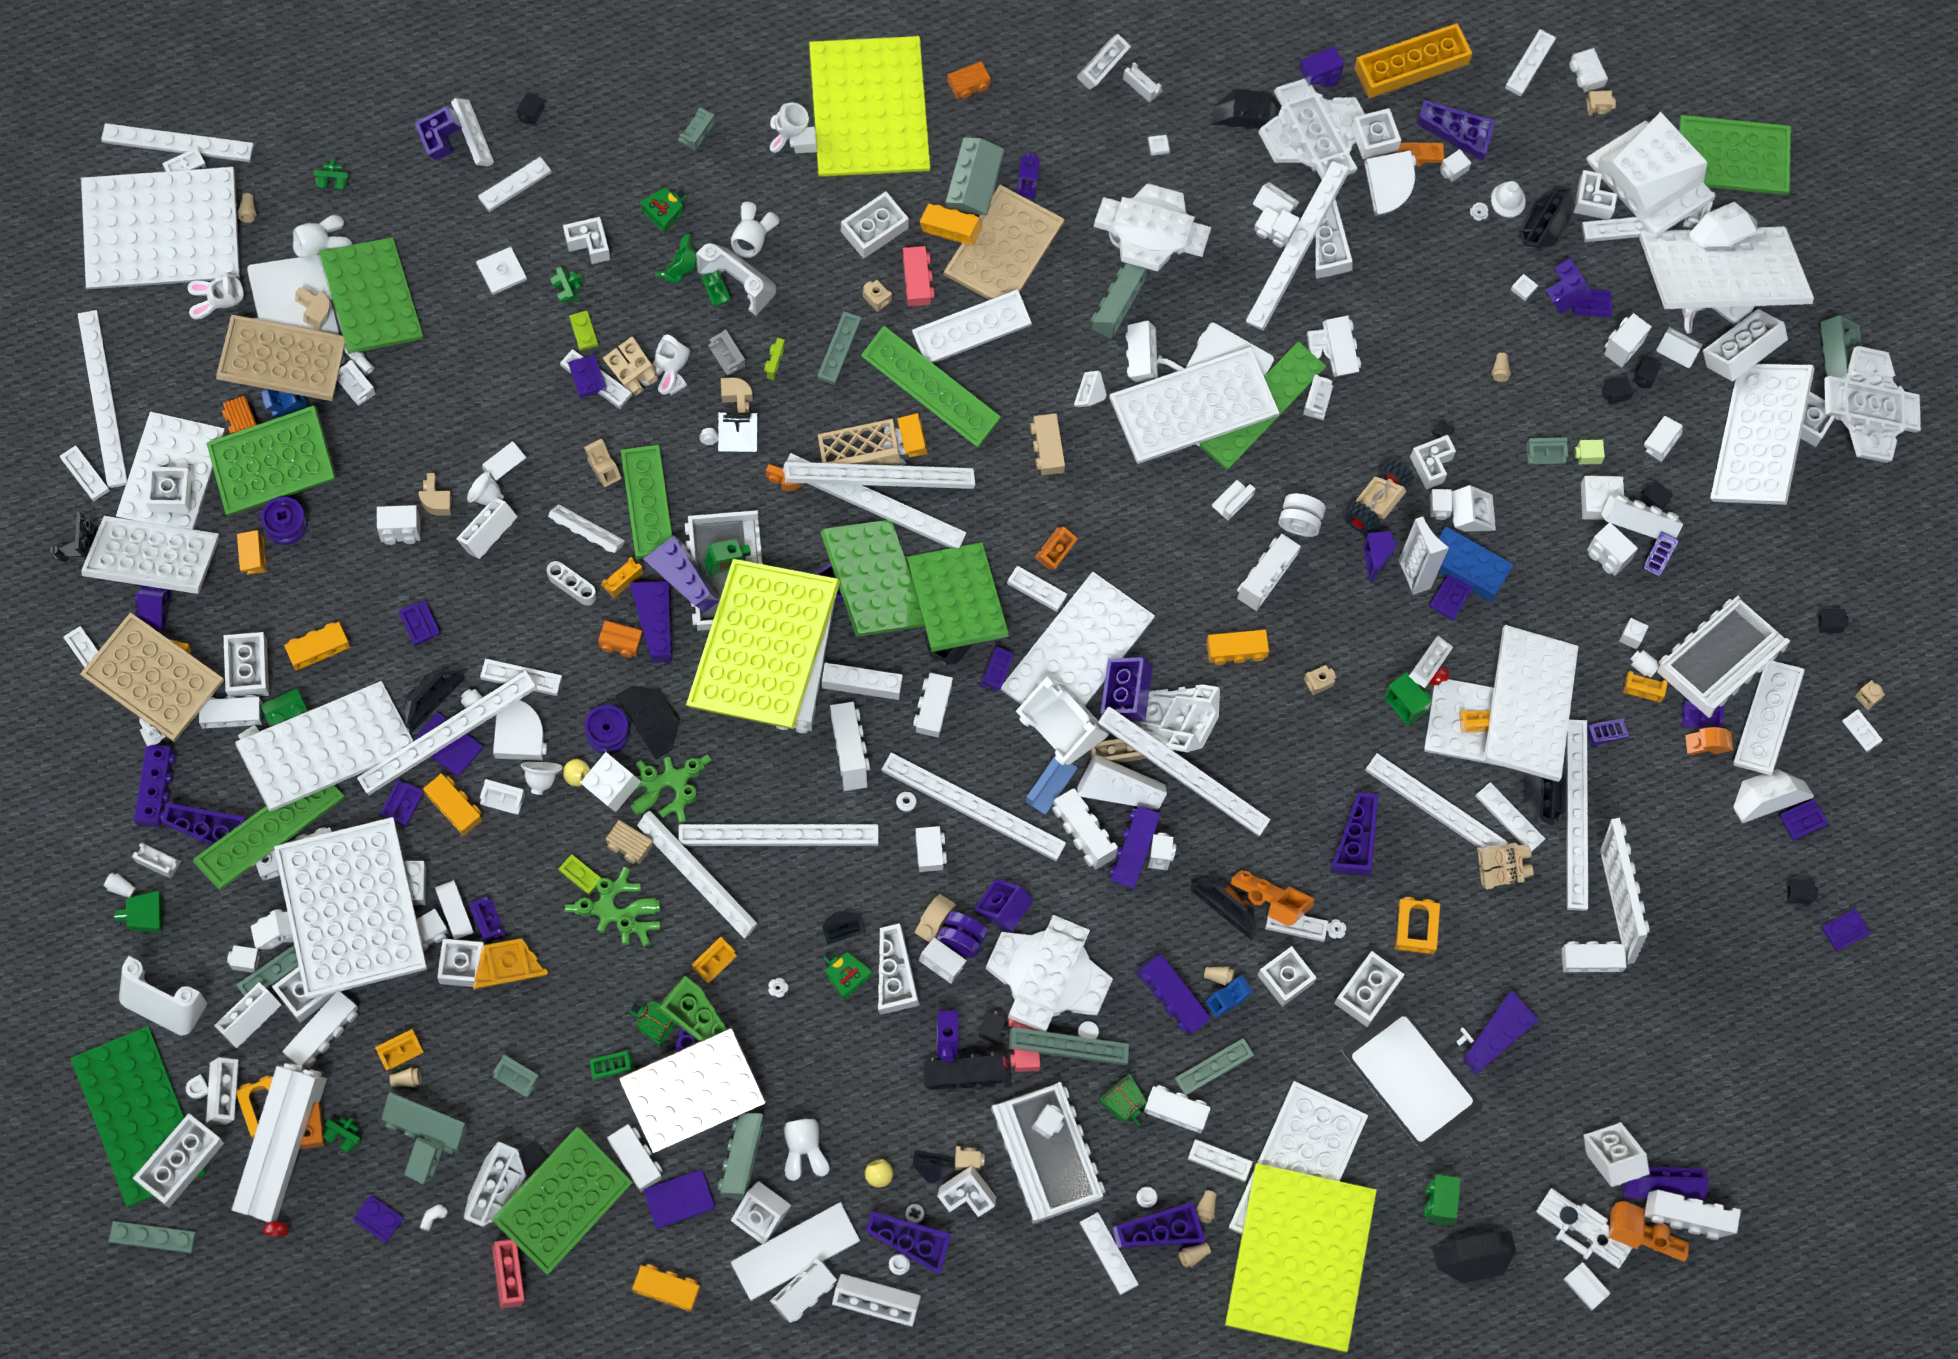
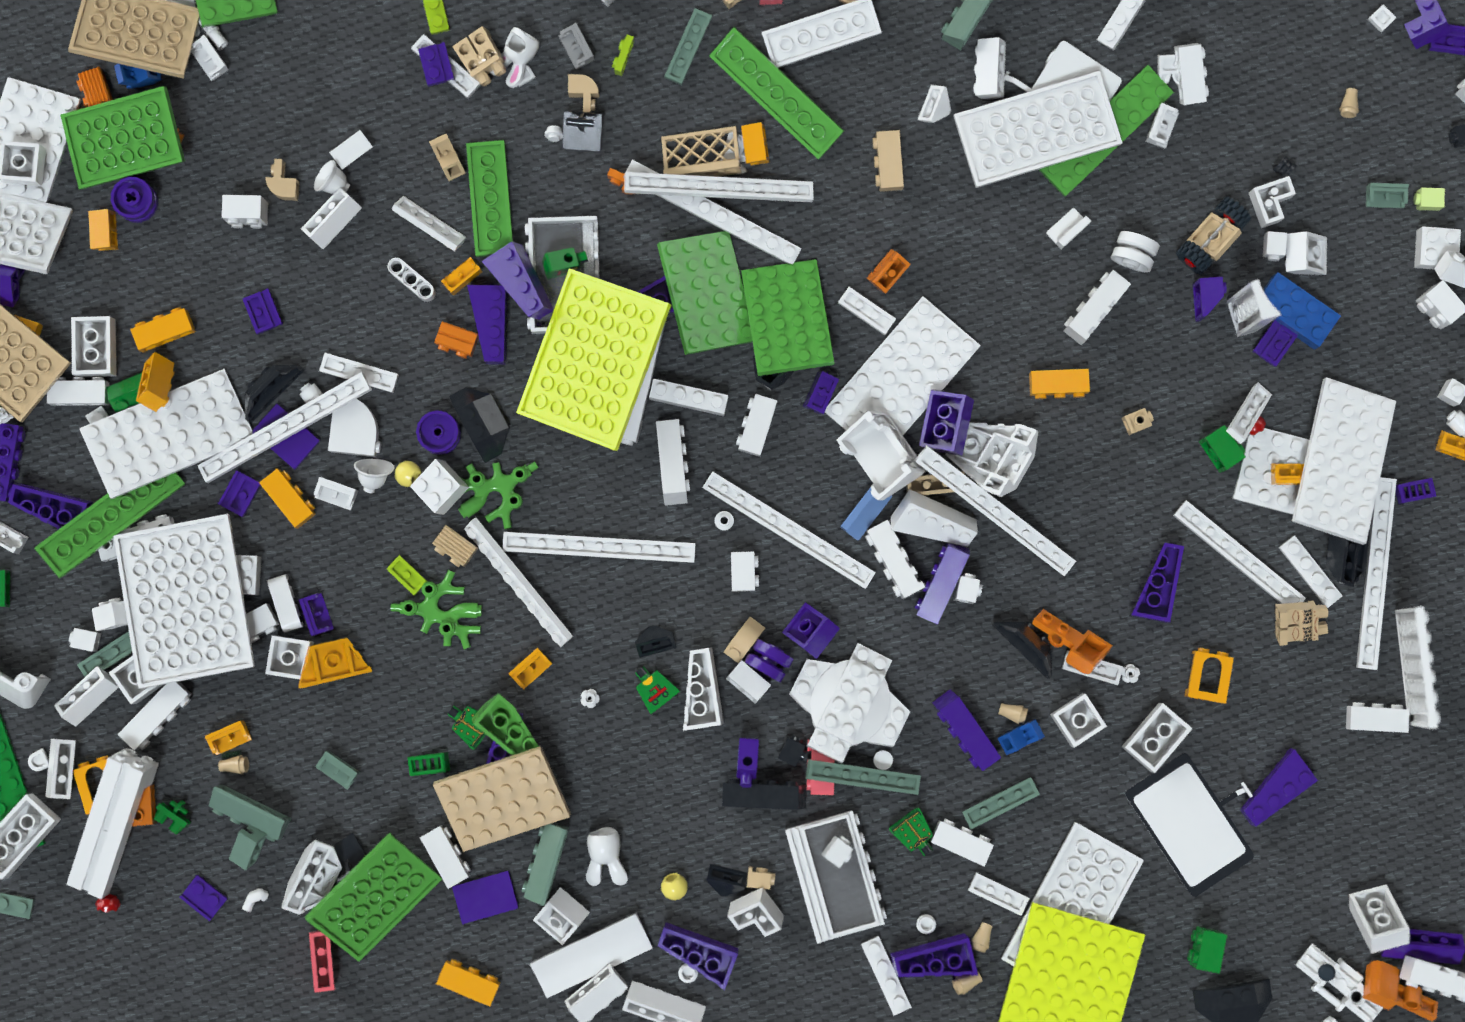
camera: 10 degrees right, 15 degrees up
(313, 693) = (155, 382): none -> light orange brick
(918, 1208) = (702, 931): light grey bush -> none

